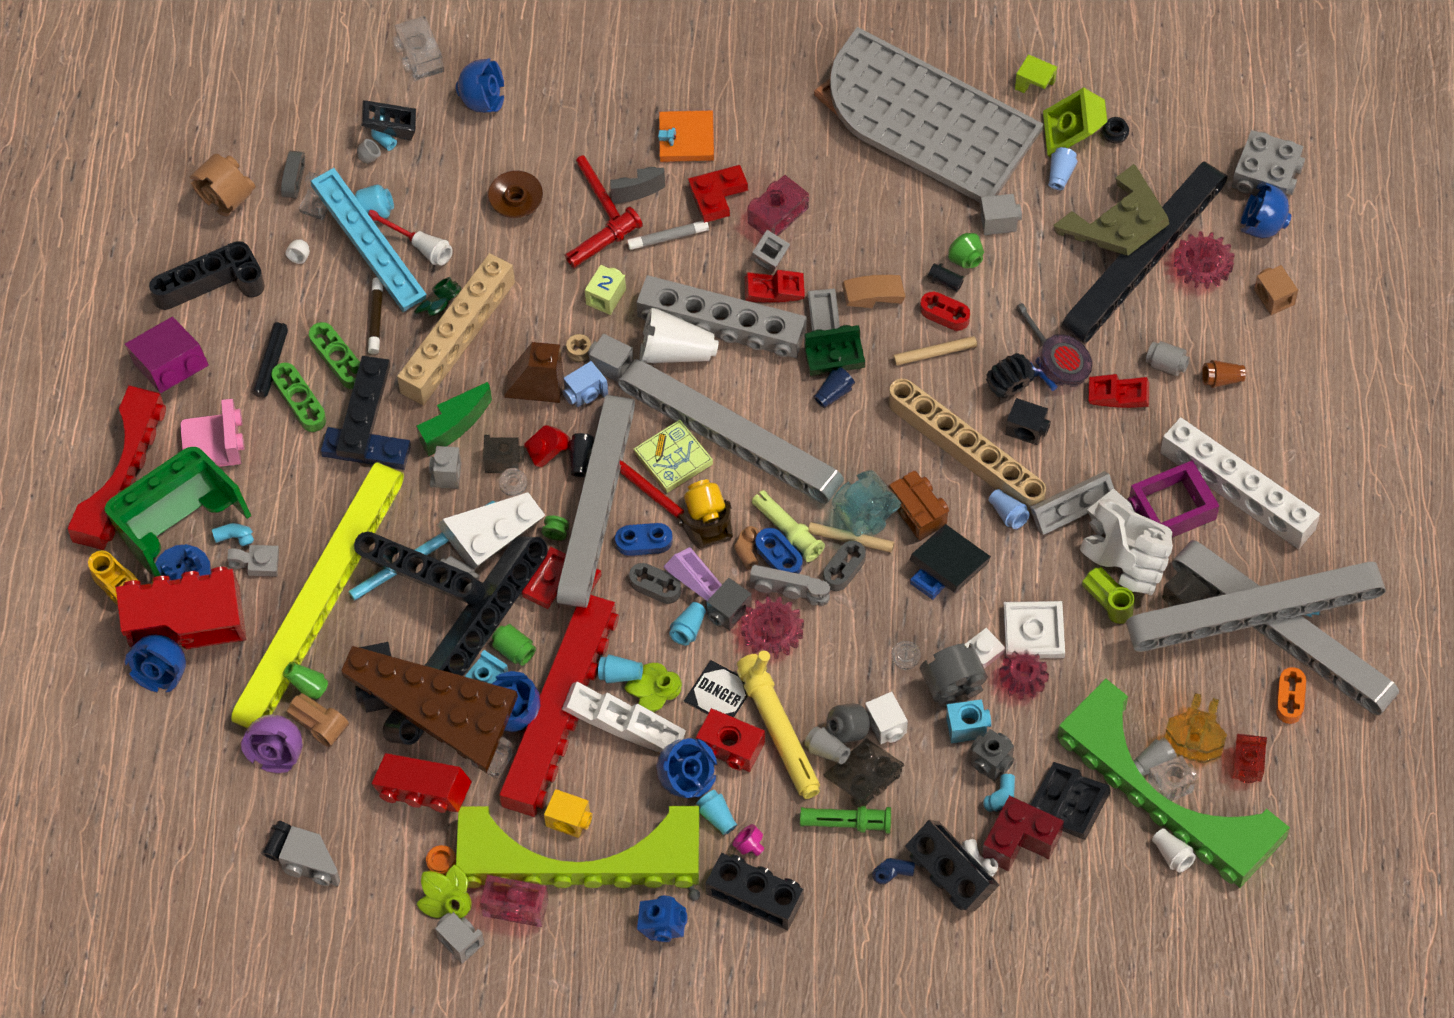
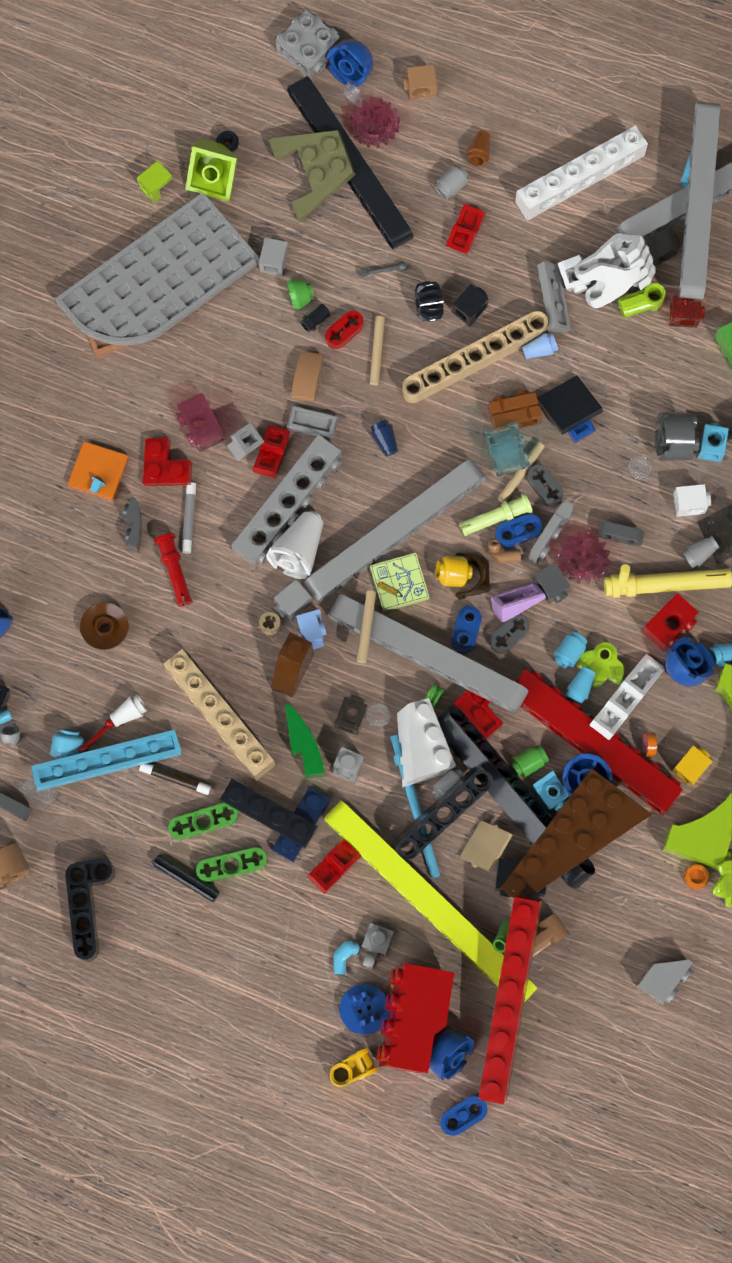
camera: 70 degrees left, 15 degrees up
(96, 703) = (463, 1116): none -> blue plate
(140, 415) = (205, 1005): red arch -> none
(166, 354) = (157, 963): magenta brick -> none
(167, 497) = (295, 1003): green windscreen -> none
(216, 435) = (248, 948): bright pink bracket -> none
(231, 694) = (510, 999): none -> red brick
(273, 743) = (555, 977): medium lavender cylinder -> none
(276, 841) = (639, 1000): black pin -> none
(297, 251) = (87, 823): white hinge -> none
(327, 492) = (334, 866): none -> red slope
(400, 629) = (485, 846): none -> tan piece
(421, 783) = (635, 871): red brick -> none
(443, 292) = (184, 718): dark green plate -> none
(546, 444) = (355, 677): red plate -> none
(577, 761) = (649, 744): none -> orange tile
(580, 452) = (377, 654): black cone -> none
(597, 187) = (121, 558): red bar -> none
(602, 427) = (366, 626): none -> tan bar
(605, 289) = (225, 583): yellowish green brick -> none
(650, 490) = (427, 608): red bar -> none
(658, 647) = (570, 650): none -> medium azure brick
(687, 624) = (558, 622): medium azure cone -> none
(718, 690) = (619, 618): sticker -> none
(816, 658) = (620, 533): none -> dark grey beam
(834, 349) = (353, 426): dark green bracket -> none
(848, 722) = (688, 529): dark grey head -> none
(987, 647) = (651, 407): white plate -> none
(1020, 684) = (681, 381): clear pink gear -> none
(1034, 628) = (648, 367): white tile -> none
(1038, 372) = (425, 277): blue hand -> none
(1061, 167) = (247, 194): light blue cone -> none
(1065, 360) = (427, 257): tile -> none
(1115, 644) = (685, 312): none -> clear red brick
(1197, 488) = (576, 205): magenta window -> none
(1228, 228) = (352, 93): none -> clear plate

